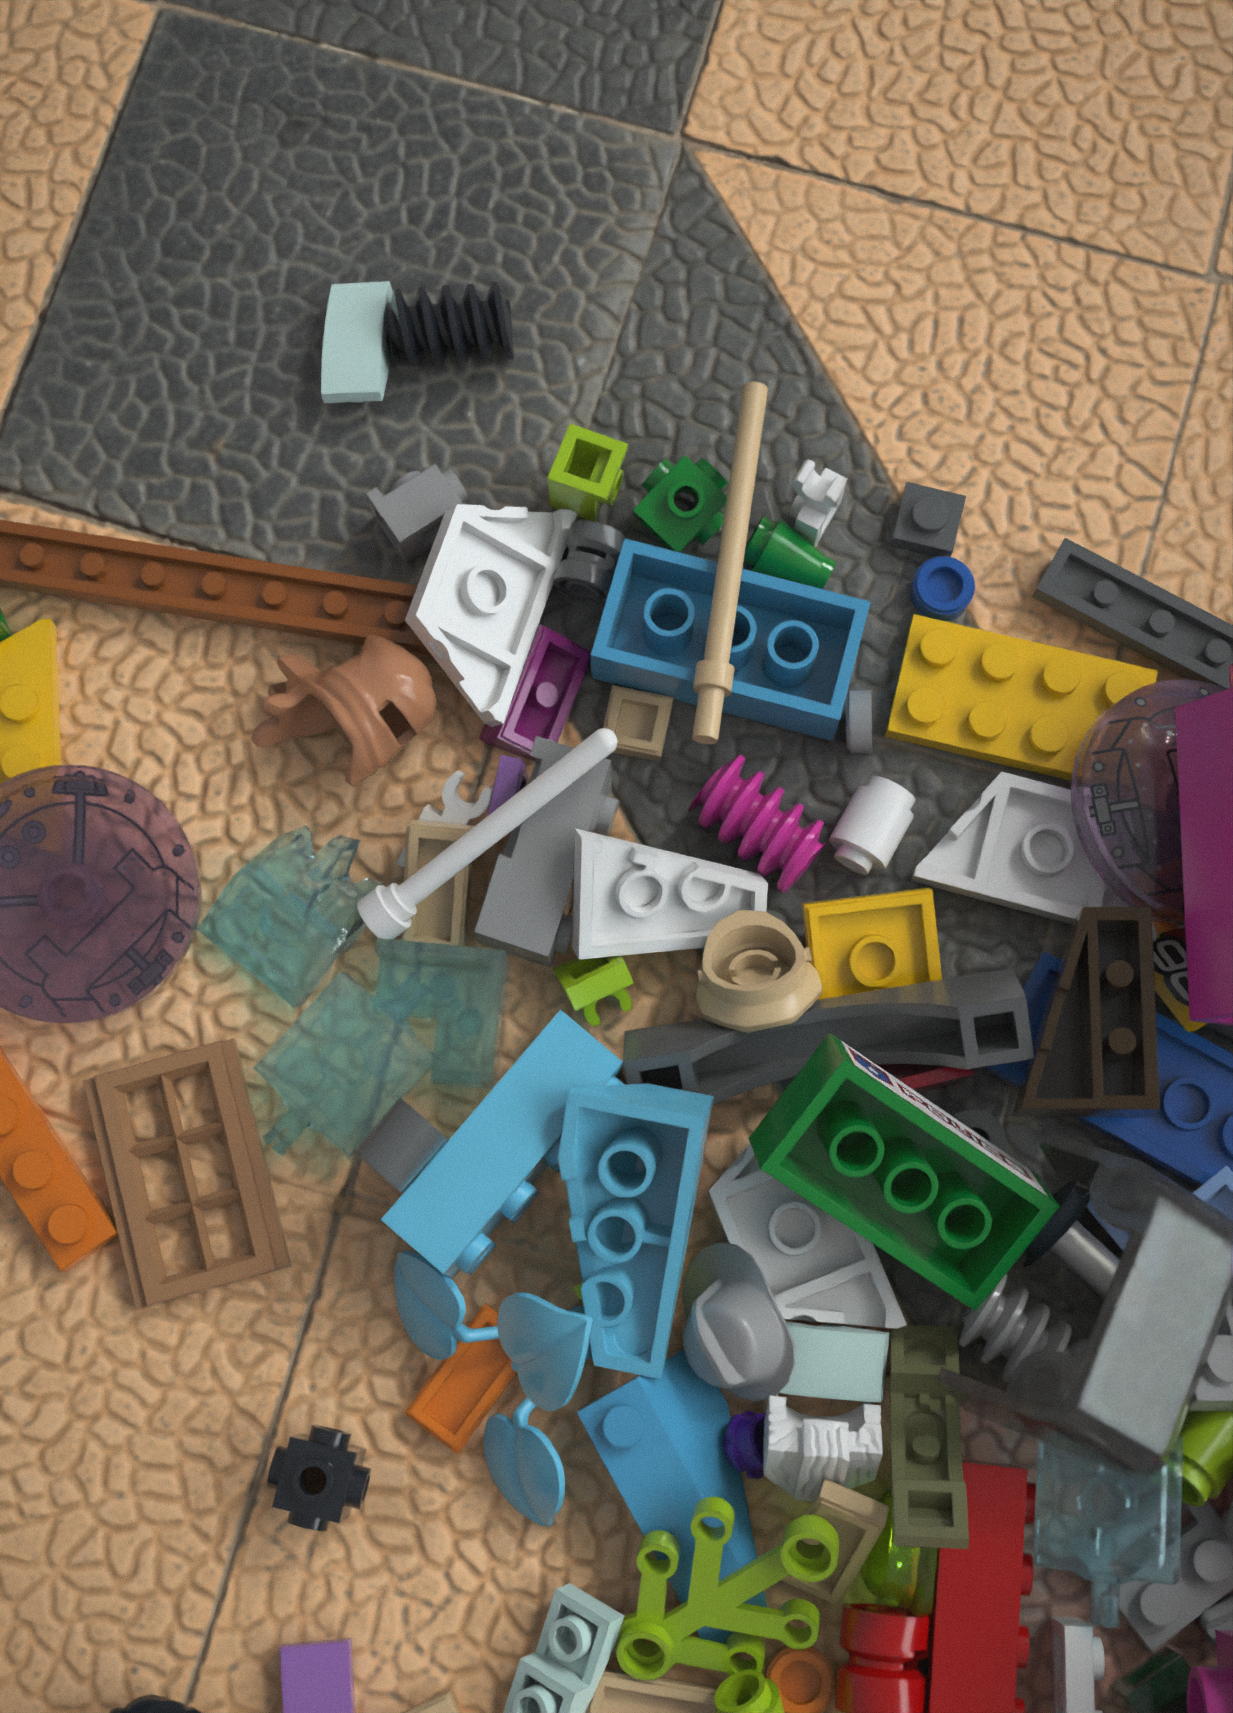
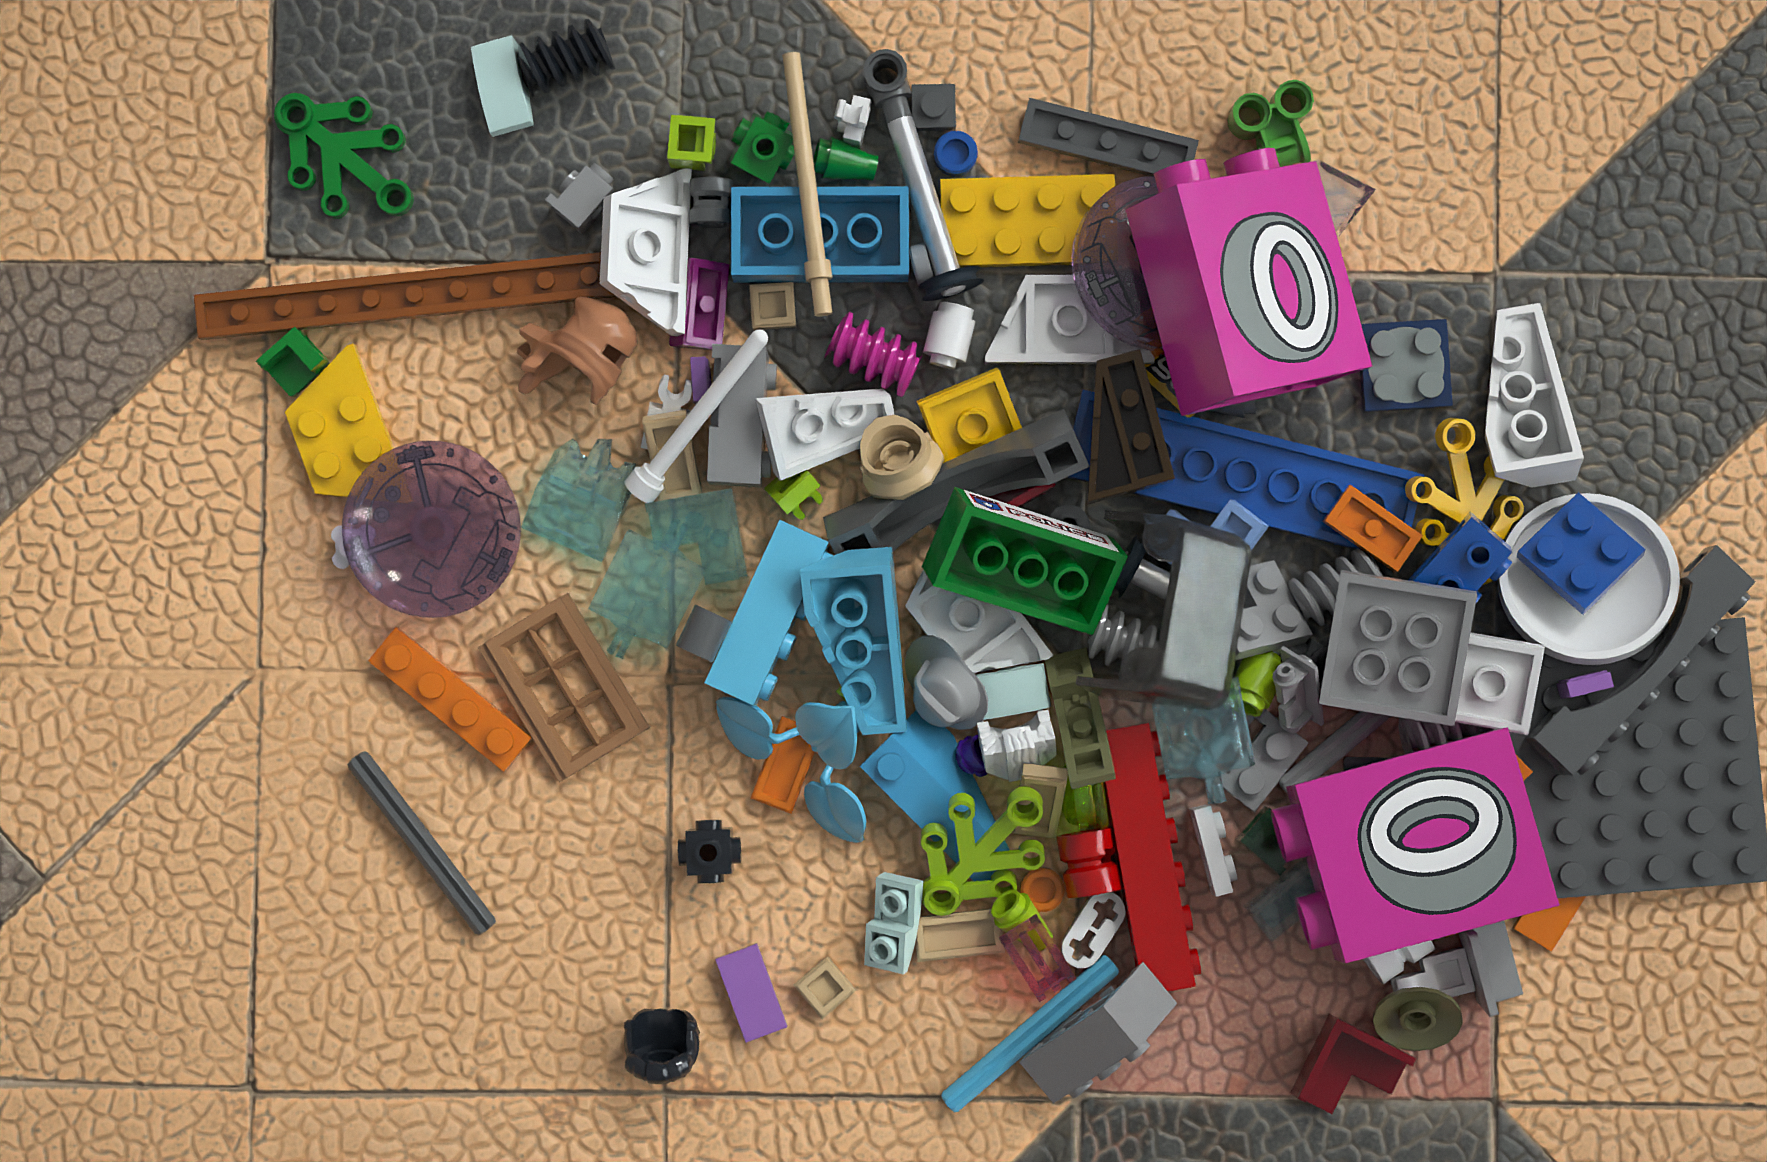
camera: 20 degrees left, 10 degrees up
(116, 369) = (337, 150): none -> green plant
(892, 746) = (893, 98): none -> piece

